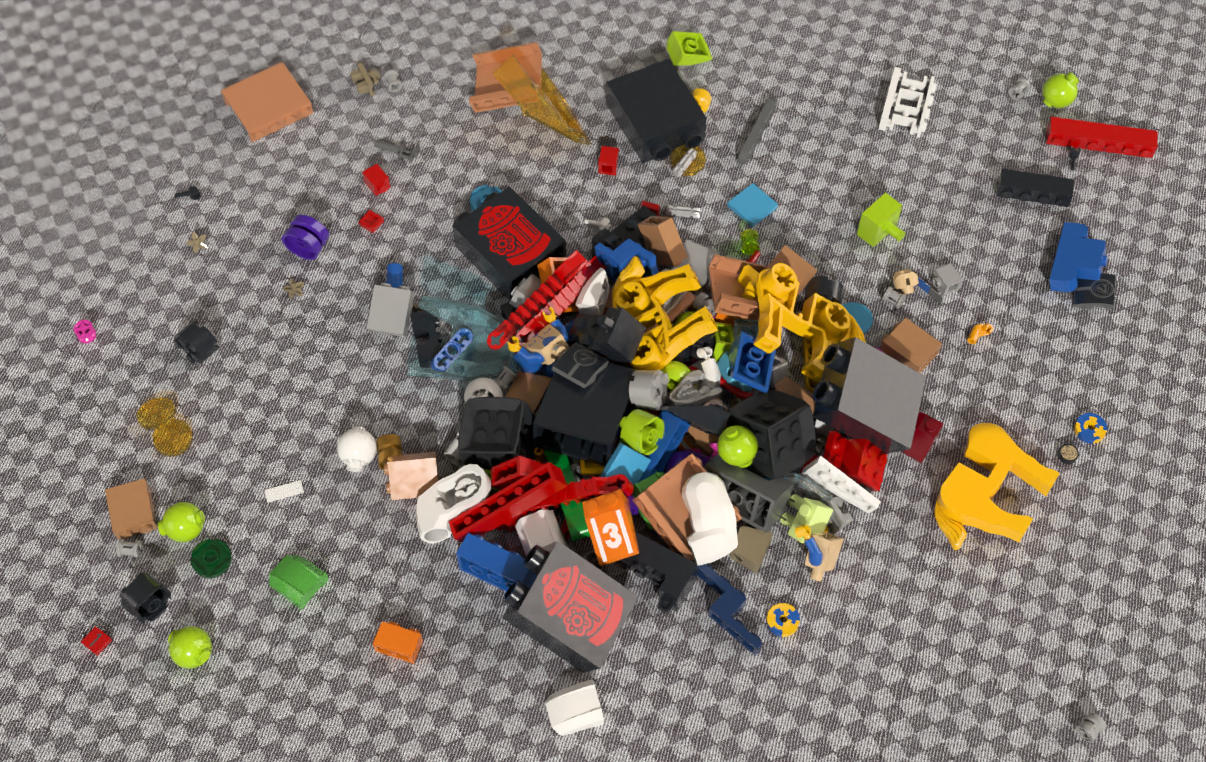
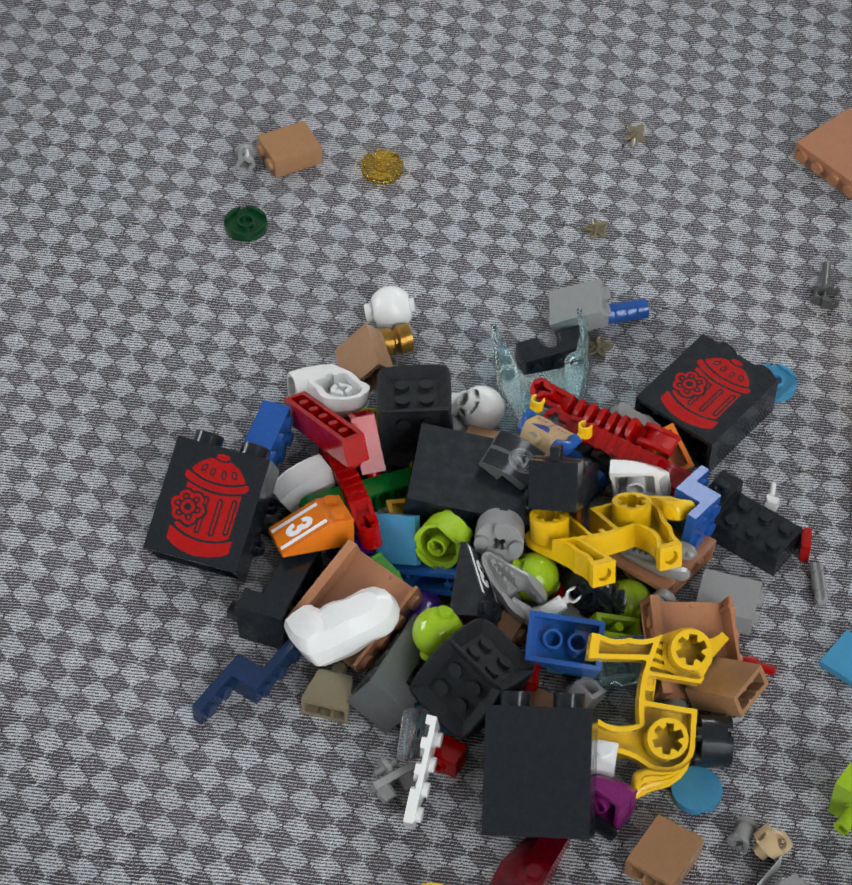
camera: 80 degrees right, 10 degrees down
(80, 330) = (495, 71): dark pink wheel -> none
(96, 641) = (142, 156): red tile -> none
(145, 598) = (187, 175): black brick -> none
(156, 413) = (406, 145): clear yellow tile -> none
(182, 522) = (277, 186): lime brick -> none
(189, 647) = (140, 221): lime brick -> none
(192, 192) = (700, 120): black hand -> none
(196, 342) = (495, 154): black brick -> none
(284, 491) = (336, 267): white sticker -> none
(297, 579) = (229, 294): bright green slope -> none
(305, 237) = (657, 216): dark purple wheel -> none
(371, 221) = (710, 279): red tile -> none
(376, 179) = (768, 271): red brick -> none
(398, 641) = (167, 385): orange brick -> none
(459, 348) = (554, 369): beam -> none
(505, 378) = (505, 421): light grey bush -> none
(575, 708) = (108, 551): white slope -> none
(663, 240) = (741, 544): medium nougat brick -> none
(750, 241) = (788, 658): clear neon green wheel -> none
(785, 611) = (241, 731): yellow piece -> none
(809, 513) = (368, 743): yellowish green brick -> none
(822, 550) = (330, 761): tan torso -> none
(856, 459) = (460, 791): red bracket -> none

